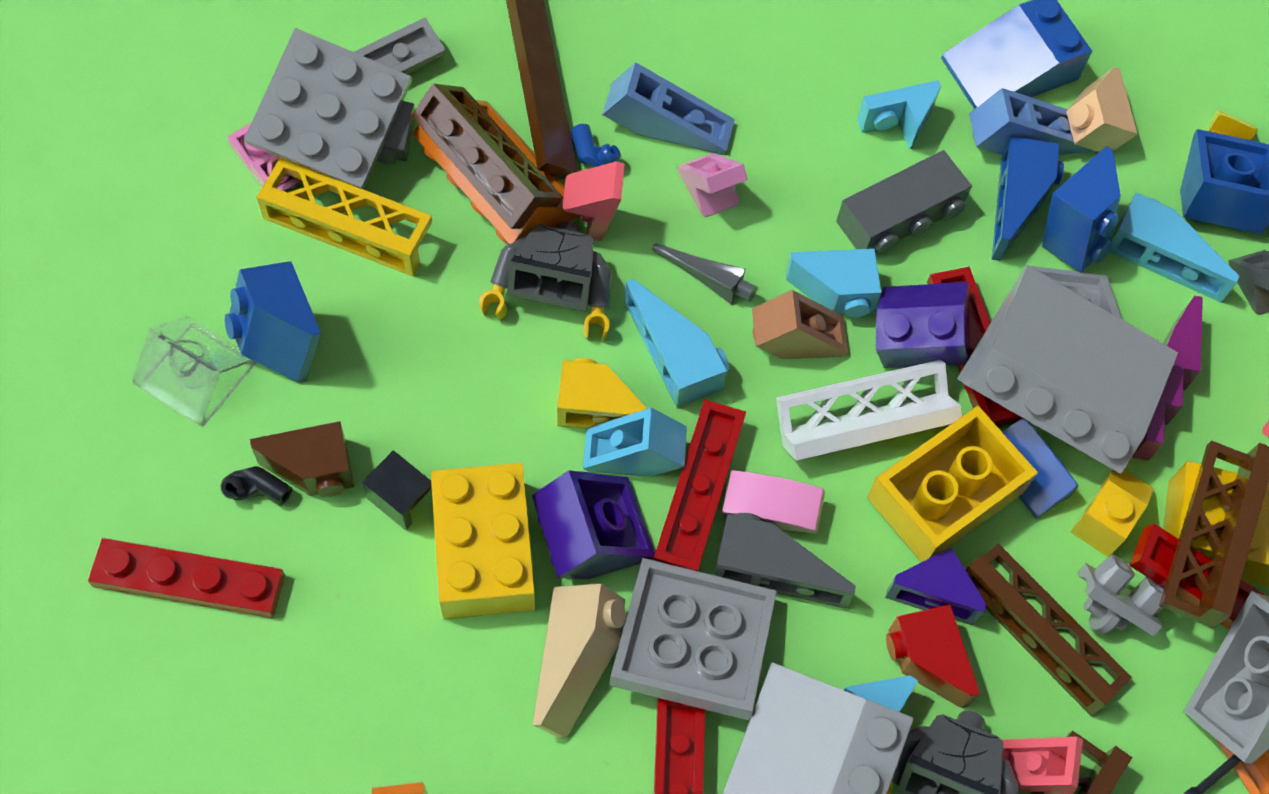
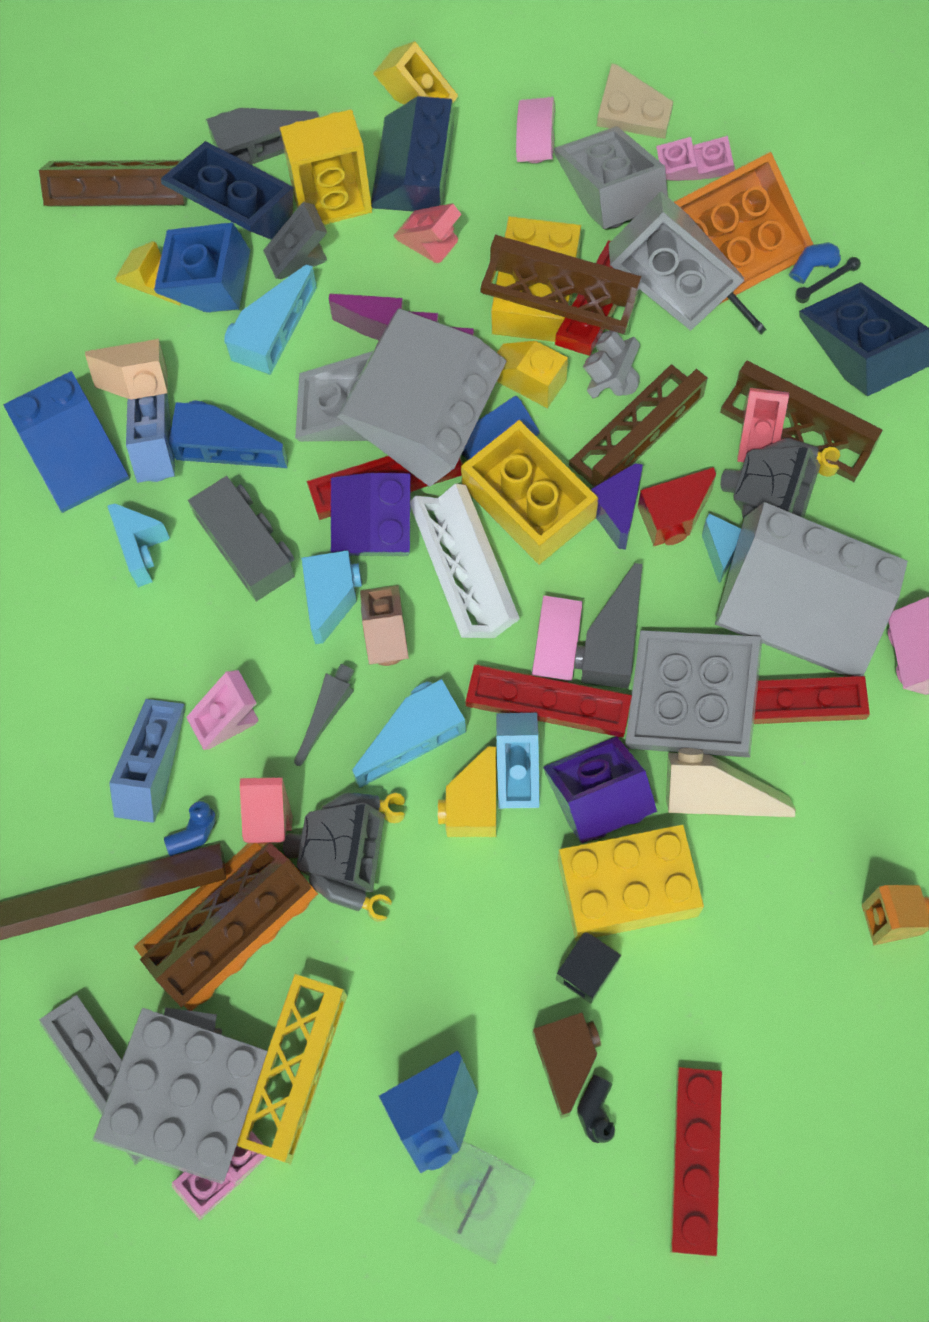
camera: 85 degrees left, 5 degrees up
(1084, 213) = (252, 378): blue slope -> none

